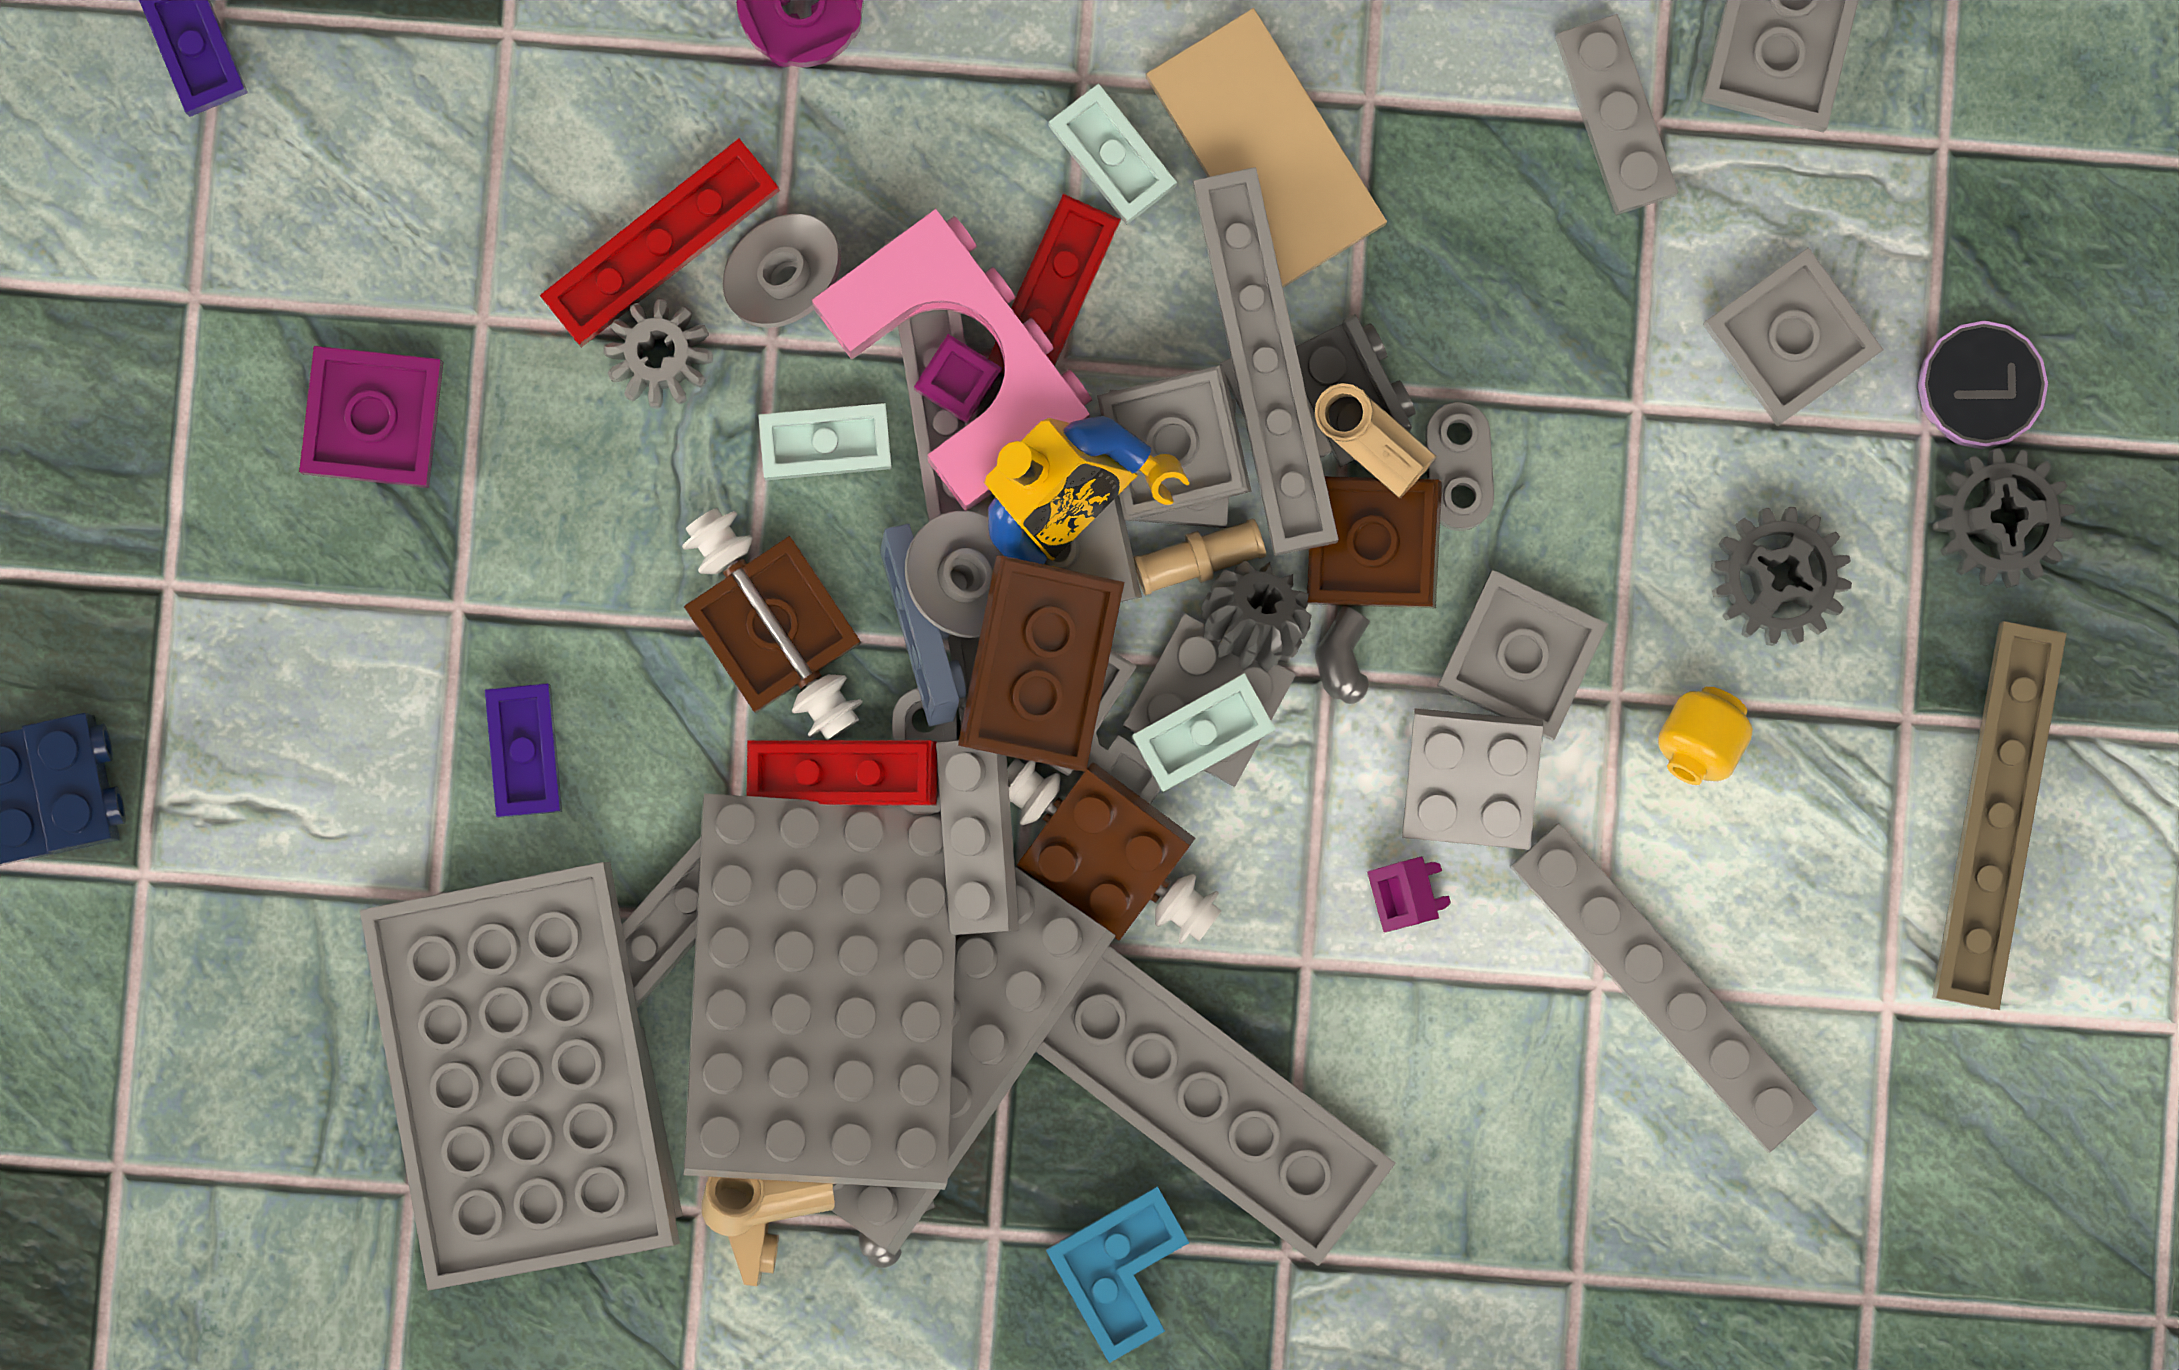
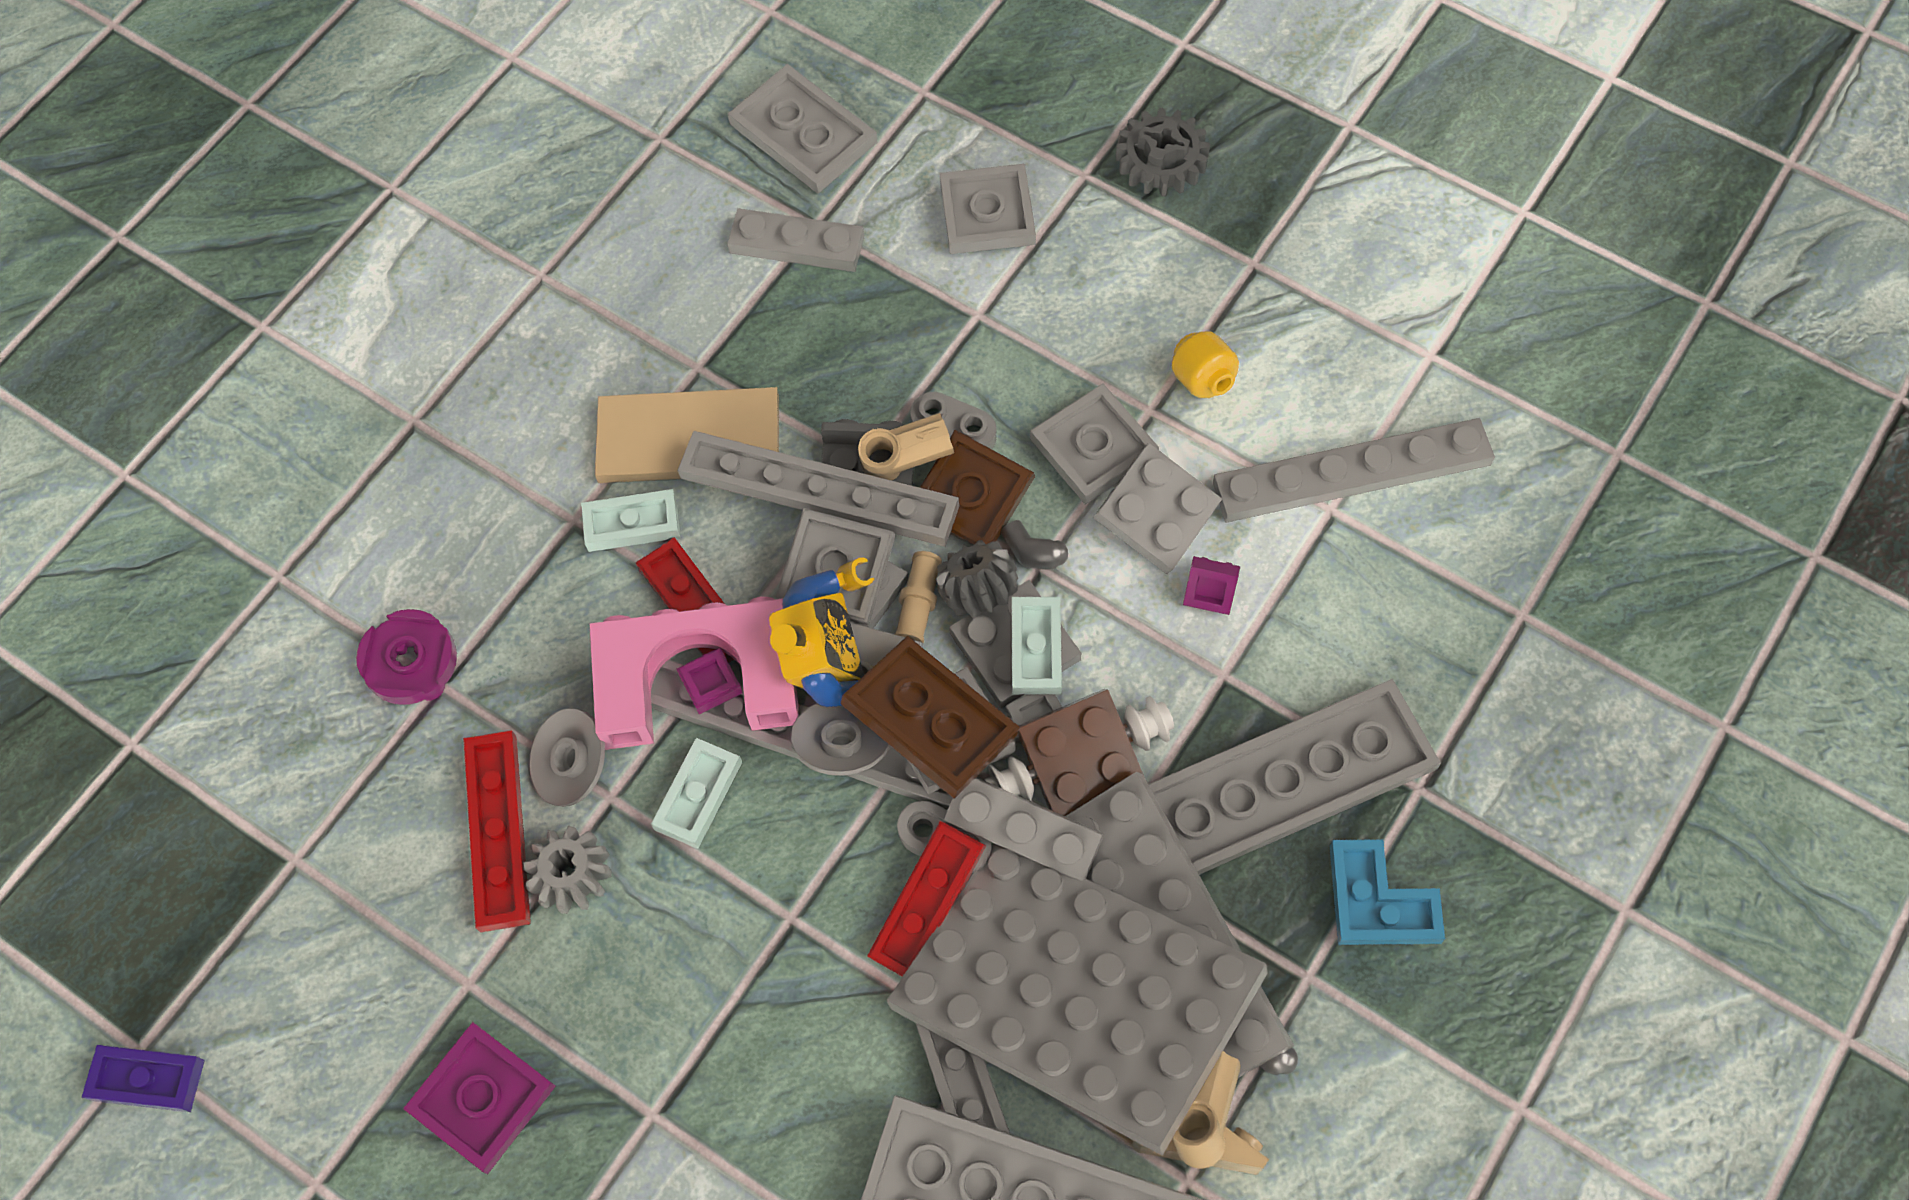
camera: 50 degrees left, 20 degrees down
(523, 750) = (780, 1120): dark purple plate -> none
(772, 624) = (796, 894): reddish brown plate -> none
(937, 679) = (866, 791): sand blue plate -> none
(1795, 552) = (1128, 279): dark grey gear -> none
(1982, 384) = (1076, 131): black tile -> none
(1999, 815) = (1345, 238): dark tan plate -> none

